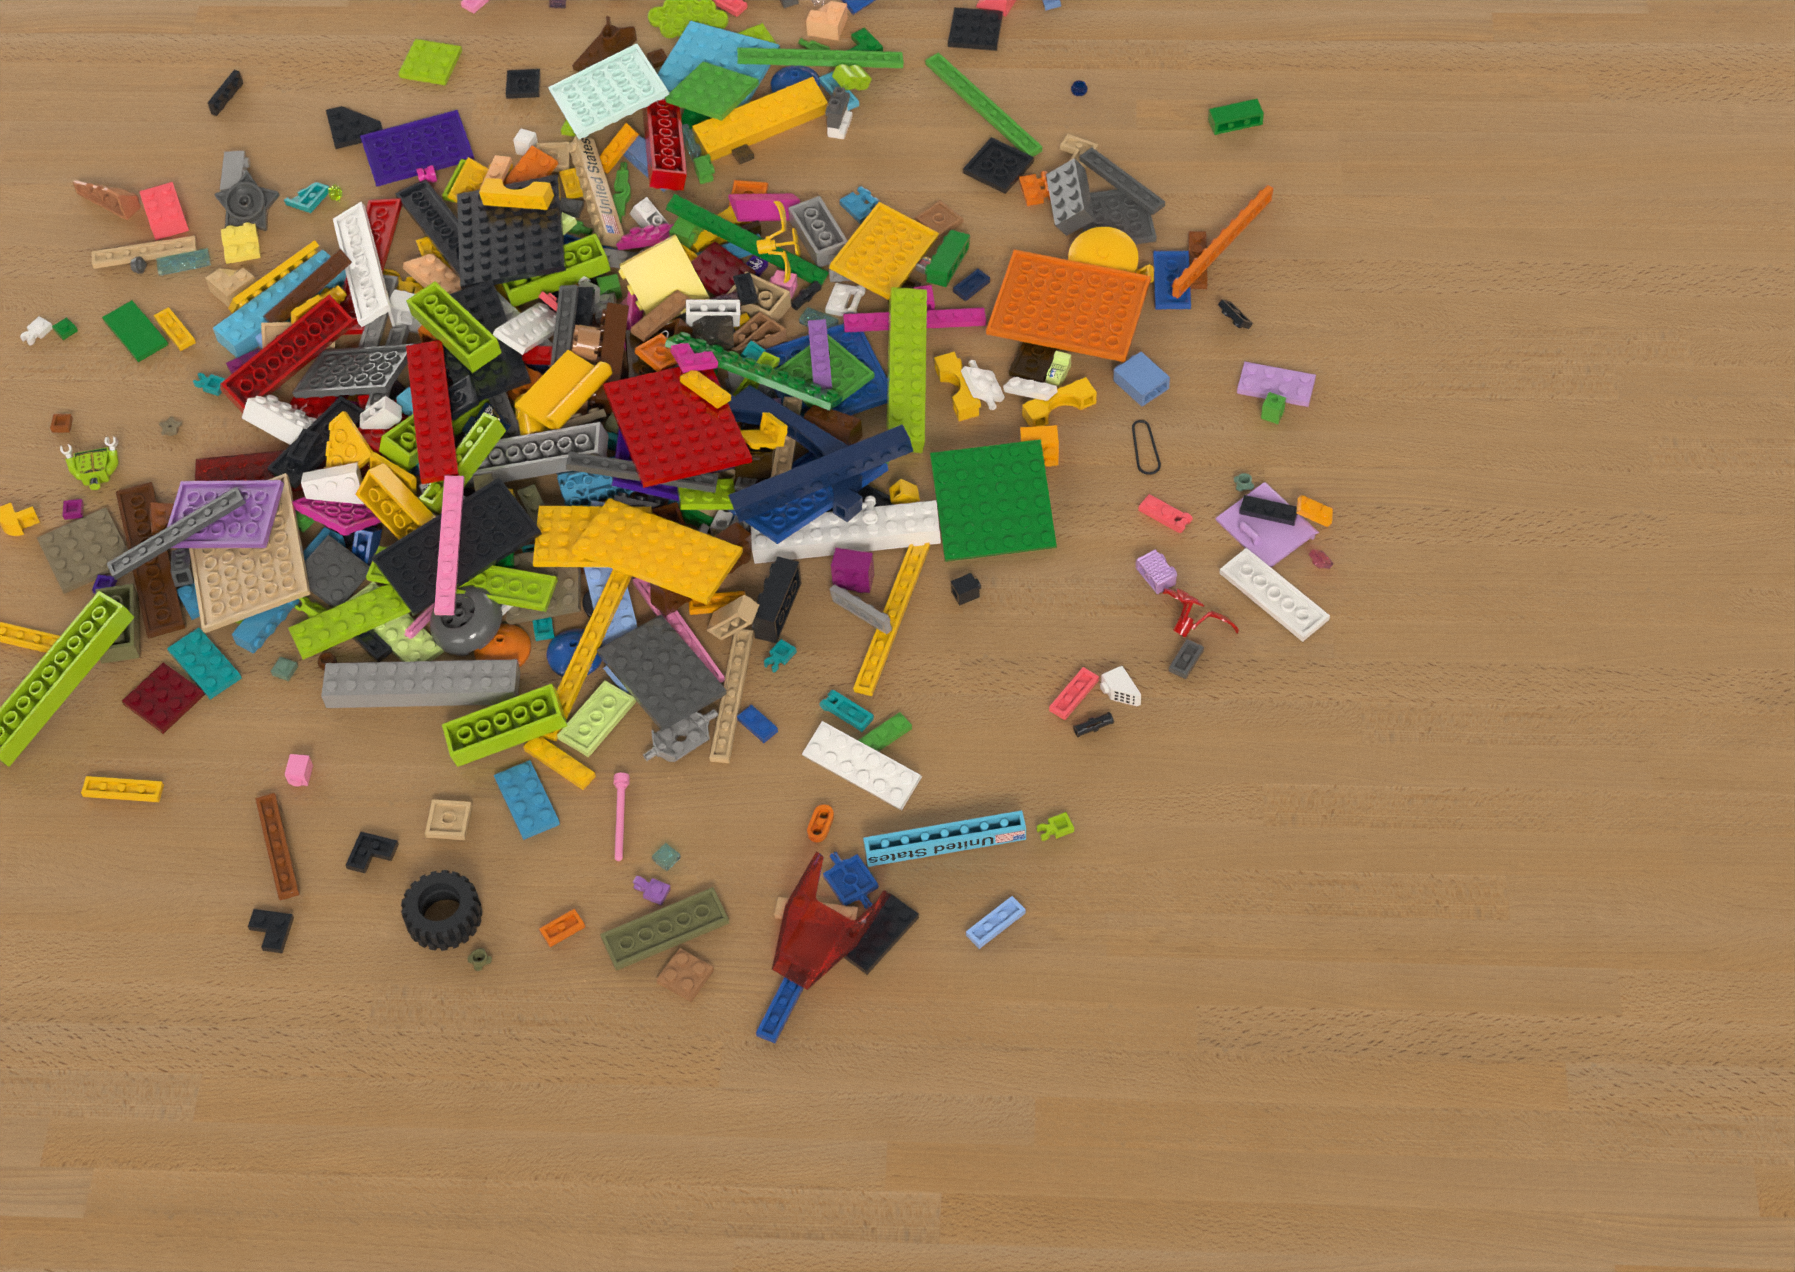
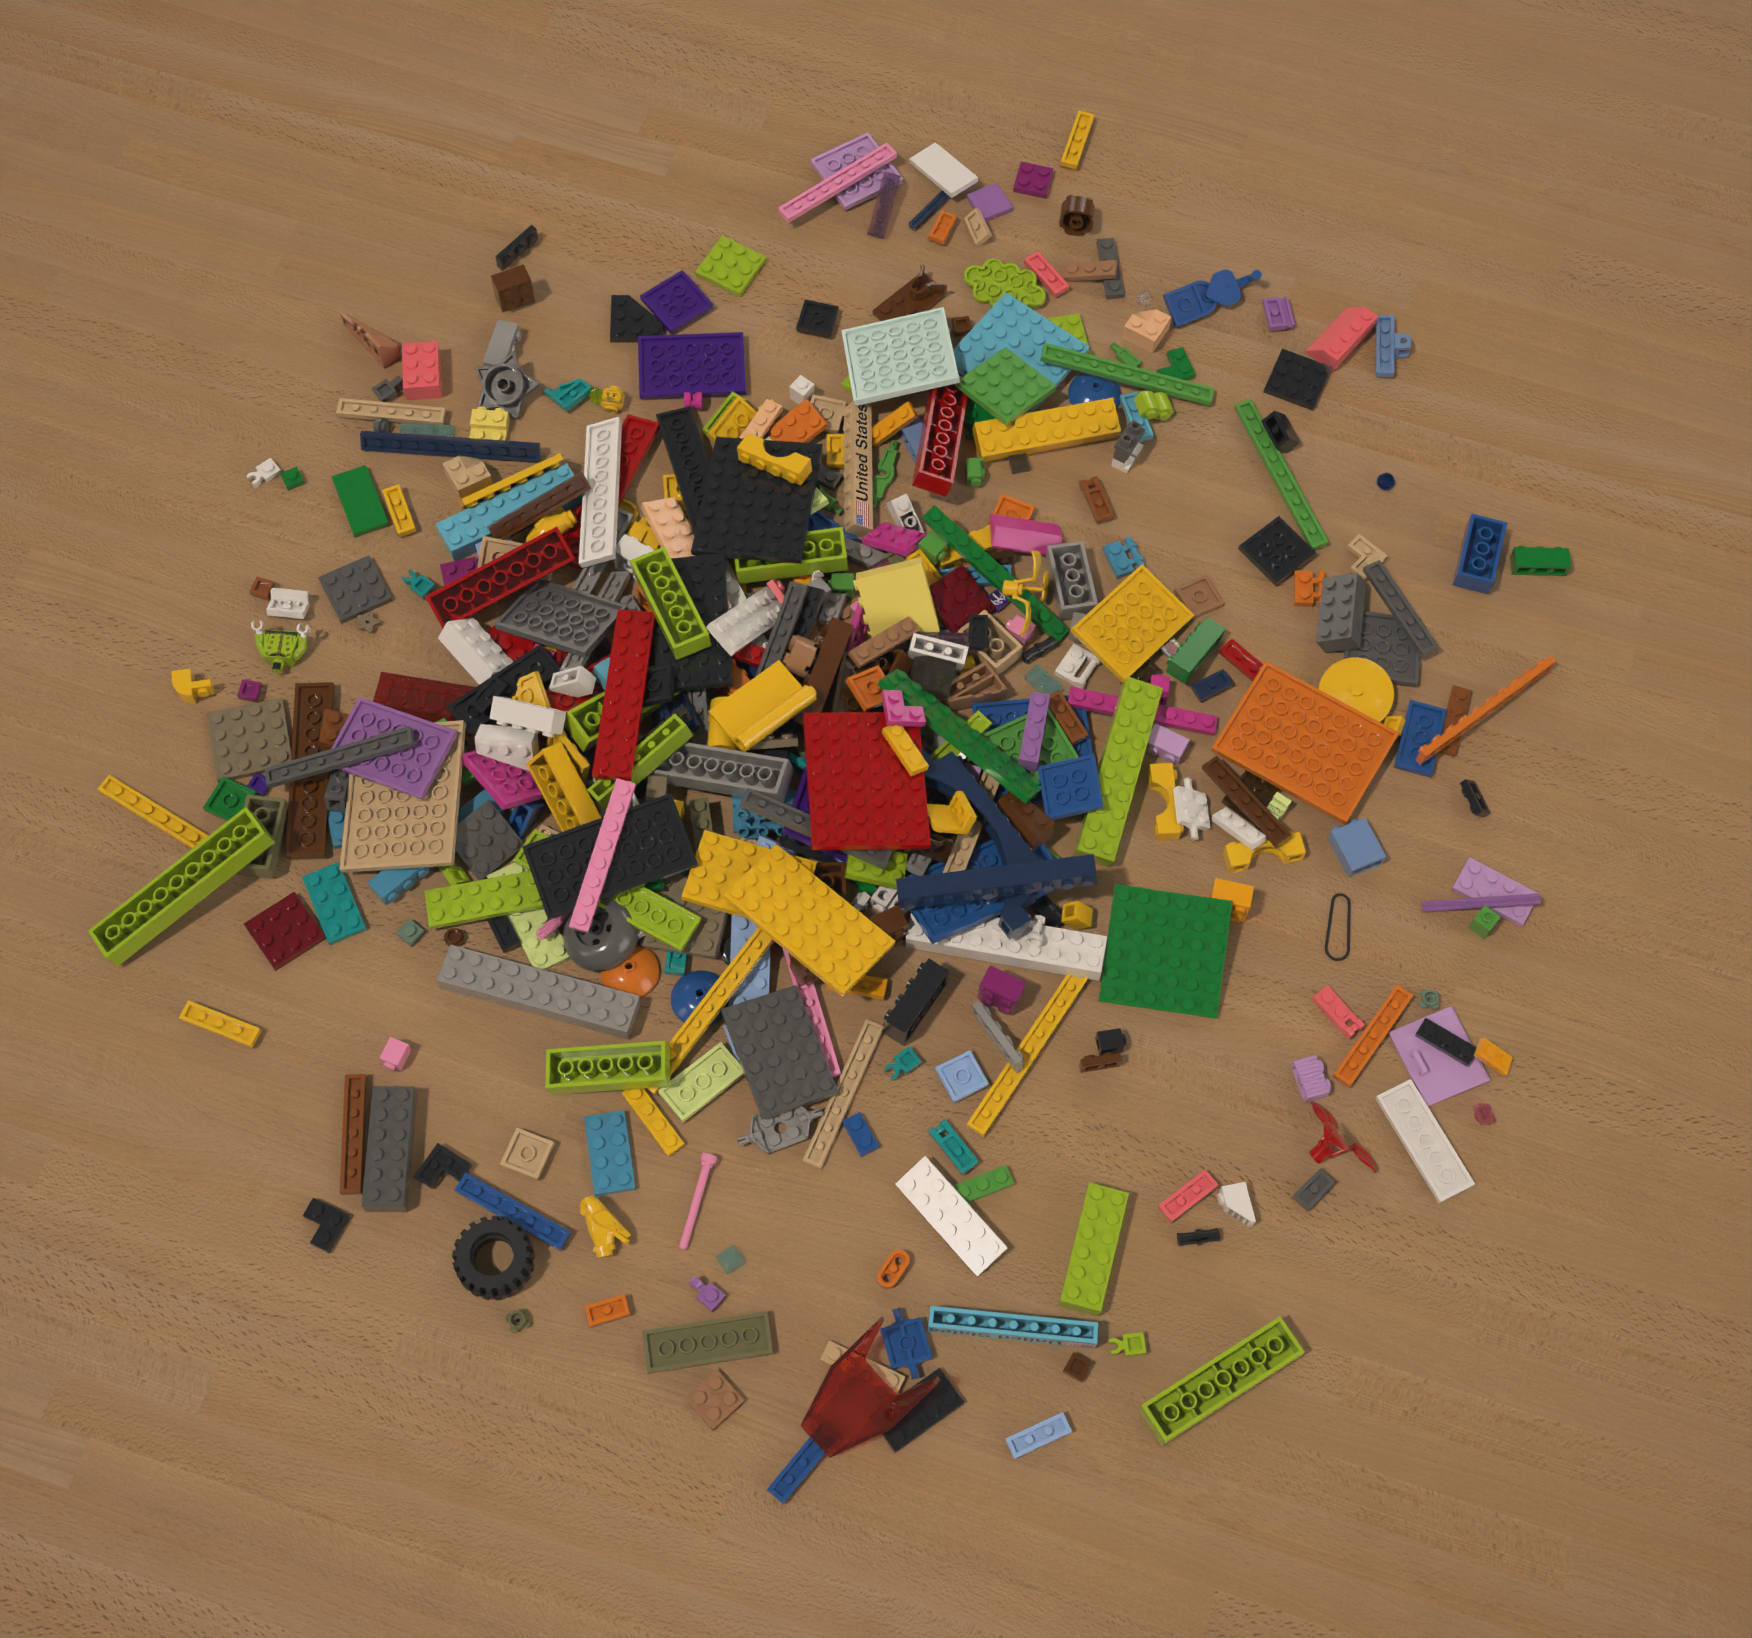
camera: 10 degrees right, 10 degrees up
(74, 601) = (227, 799): none -> green plate
(90, 428) = (288, 603): none -> white bracket
(135, 235) = (386, 390): none -> dark grey plate
(150, 403) = (355, 589): none -> dark grey plate
(207, 265) = (450, 446): none -> dark blue plate
(231, 124) = (513, 288): none -> reddish brown brick
(299, 311) = (535, 530): yellow plate -> none
(316, 848) = (389, 1149): none -> dark grey brick
(346, 450) = (527, 715): none -> white brick
(351, 191) = (612, 399): none -> yellow head
(388, 101) = (676, 301): none -> dark purple plate
(422, 864) = (507, 1207): none -> blue plate
(537, 858) = (602, 1226): none -> yellow animal
(688, 137) = (968, 430): clear light blue plate -> none
(732, 617) = (866, 1012): tan brick -> none
(752, 351) = (966, 708): teal plate -> none
(822, 165) = (1096, 500): none -> dark orange plate
(837, 652) = (961, 1076): none -> light blue plate
(848, 340) = (1067, 718): none -> dark orange plate
(867, 388) = (1070, 787): none -> blue plate
(944, 340) = (1166, 744): none -> lavender brick
(961, 607) = (1093, 1063): none -> reddish brown plate
(972, 70) = (1280, 431): none -> black brick
(990, 257) = (1241, 659): none -> red plate
(1000, 757) = (1093, 1249): none -> lime brick
(1014, 857) = (1077, 1367): none -> reddish brown plate
(1030, 364) = (1246, 802): none -> reddish brown plate
(1148, 831) = (1221, 1381): none -> lime brick
(1180, 122) = (1479, 553): none -> blue brick
(1202, 523) = (1372, 1036): none -> orange plate
(1261, 394) = (1476, 903): none -> medium lavender axle

